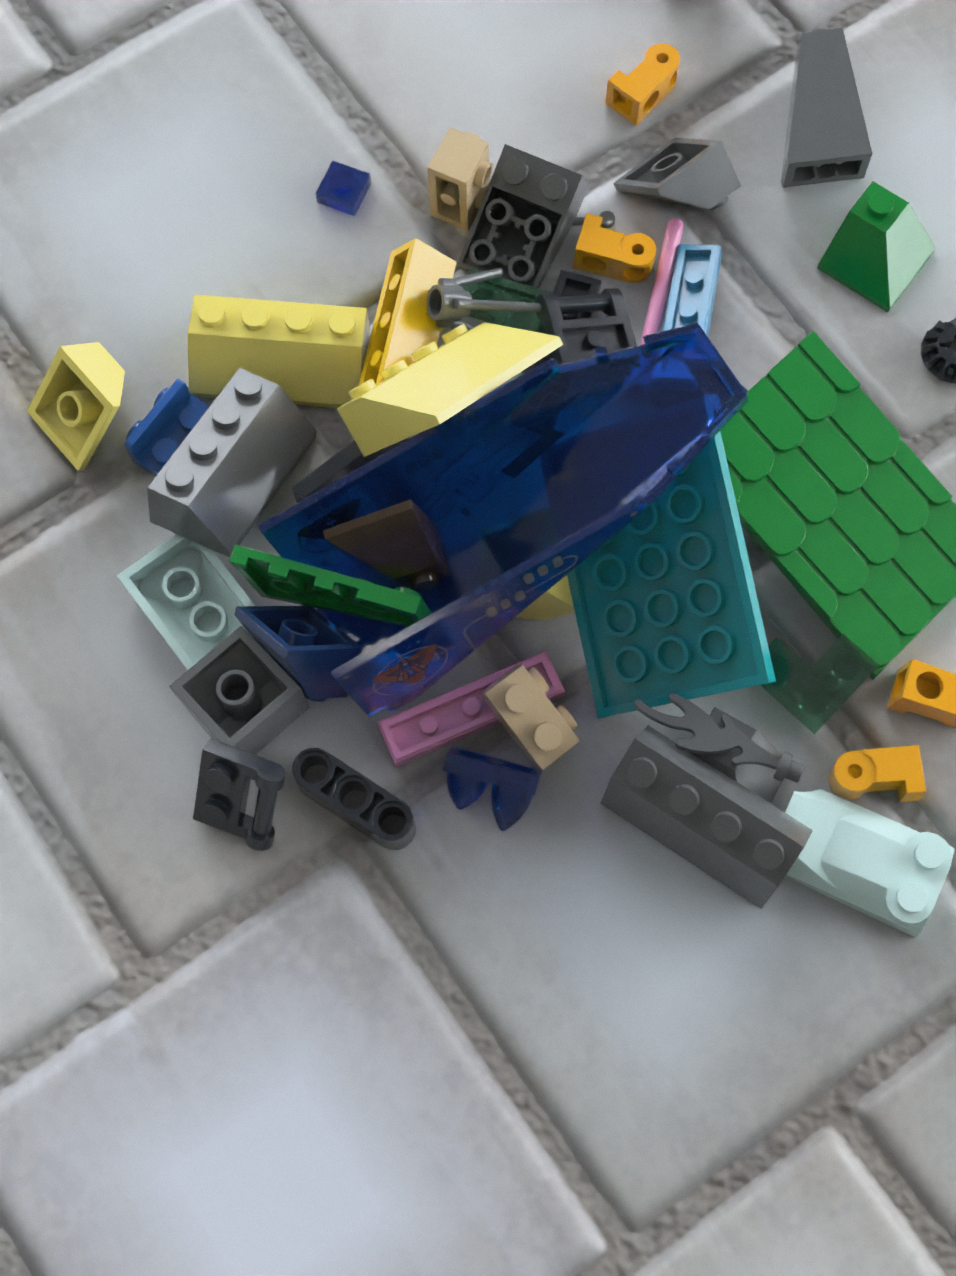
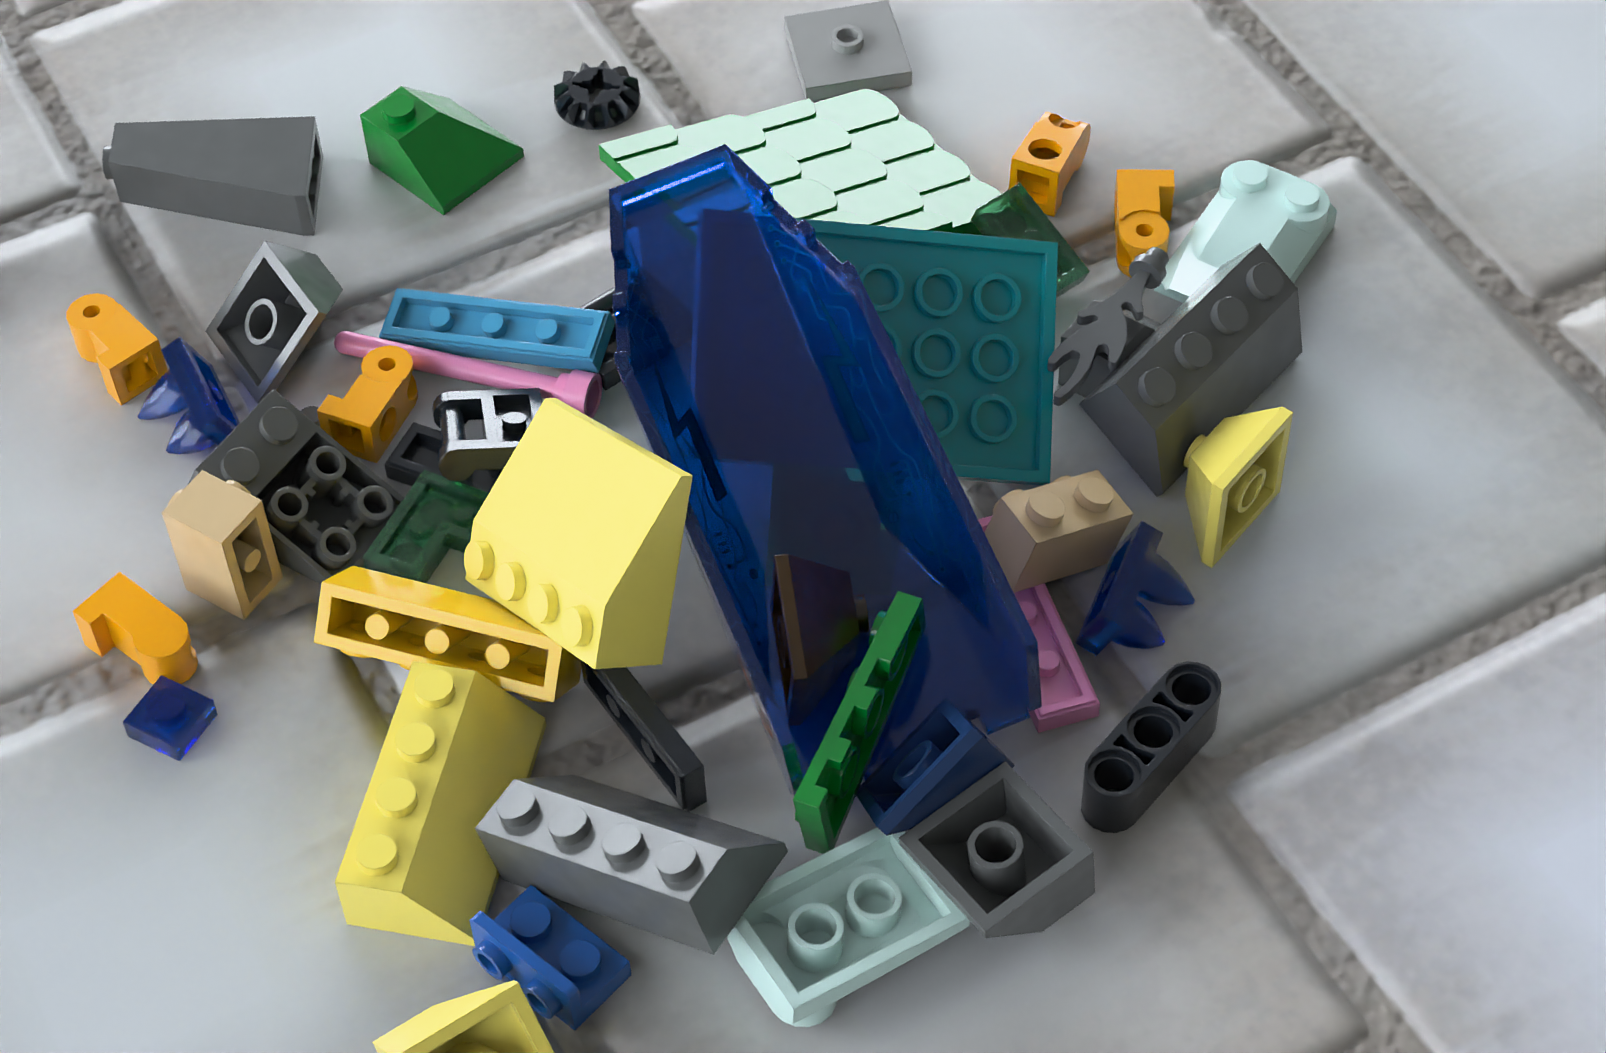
camera: 85 degrees left, 20 degrees down
(225, 789) = (1133, 878): black plate -> none
(403, 155) = (140, 627): none -> light orange leg
(450, 302) = (432, 553): dark grey plant -> none
(597, 844) = (1234, 477): none -> light yellow slope
(604, 144) = (195, 386): none -> clear blue tile

